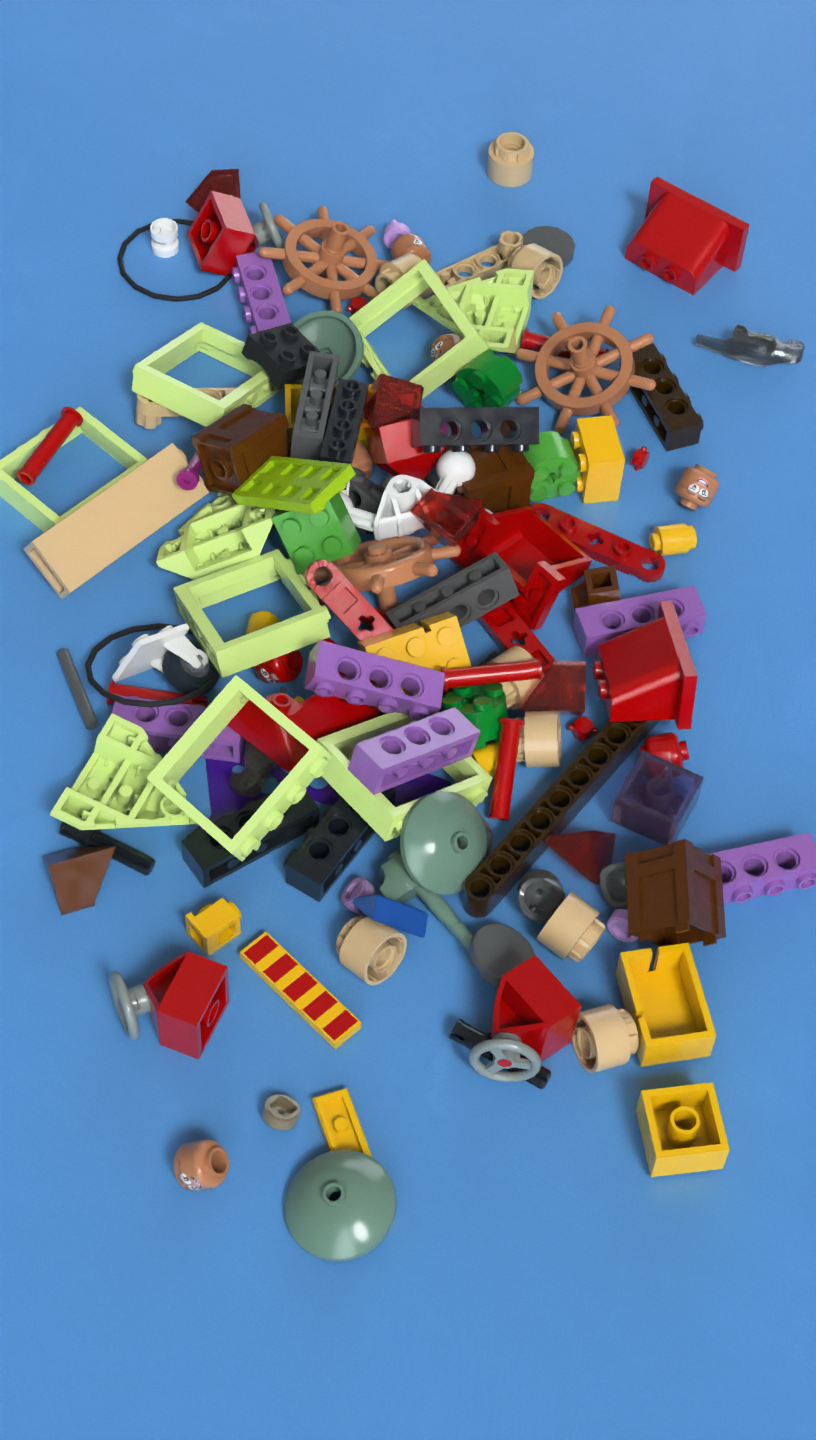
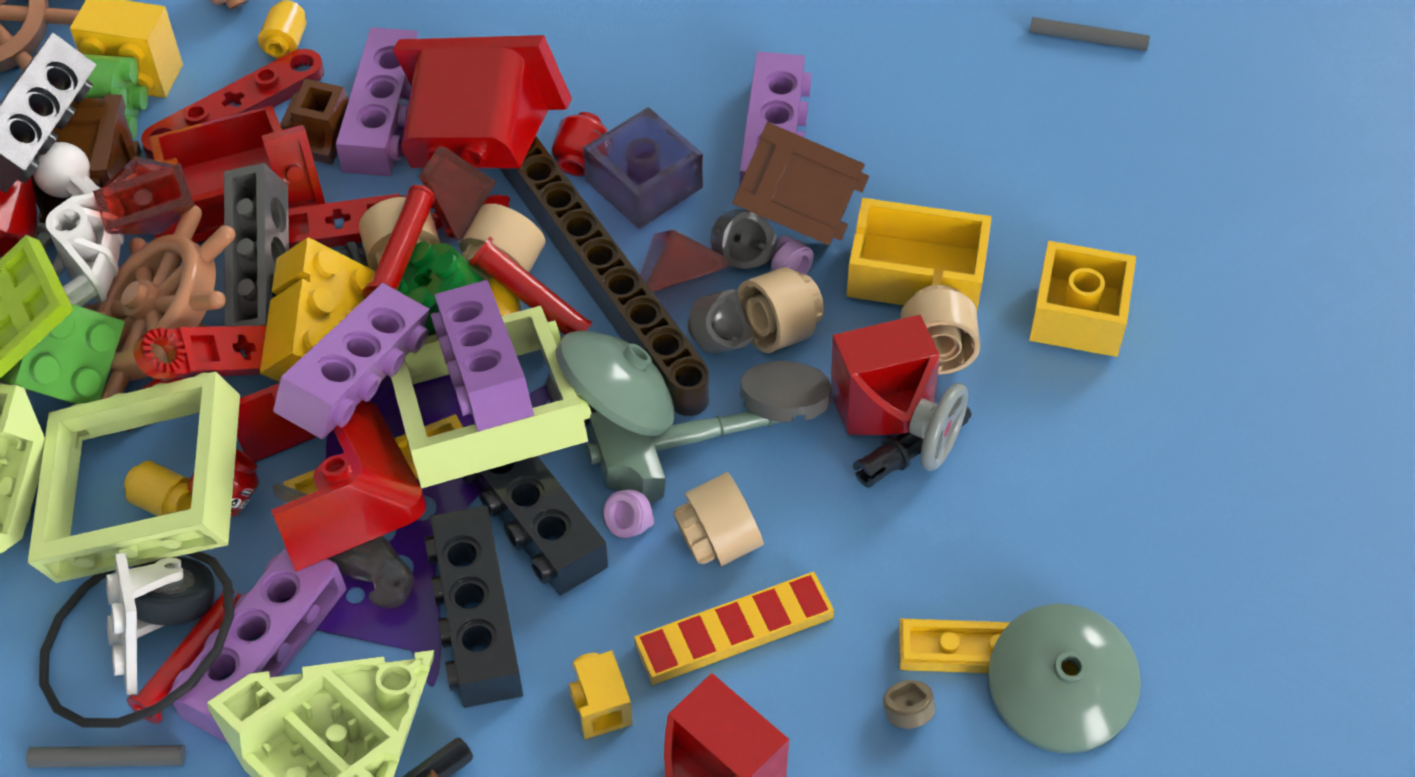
camera: 65 degrees left, 0 degrees up
(204, 732) = (485, 506): yellowish green window -> none
(393, 913) = (689, 476): blue slope -> none

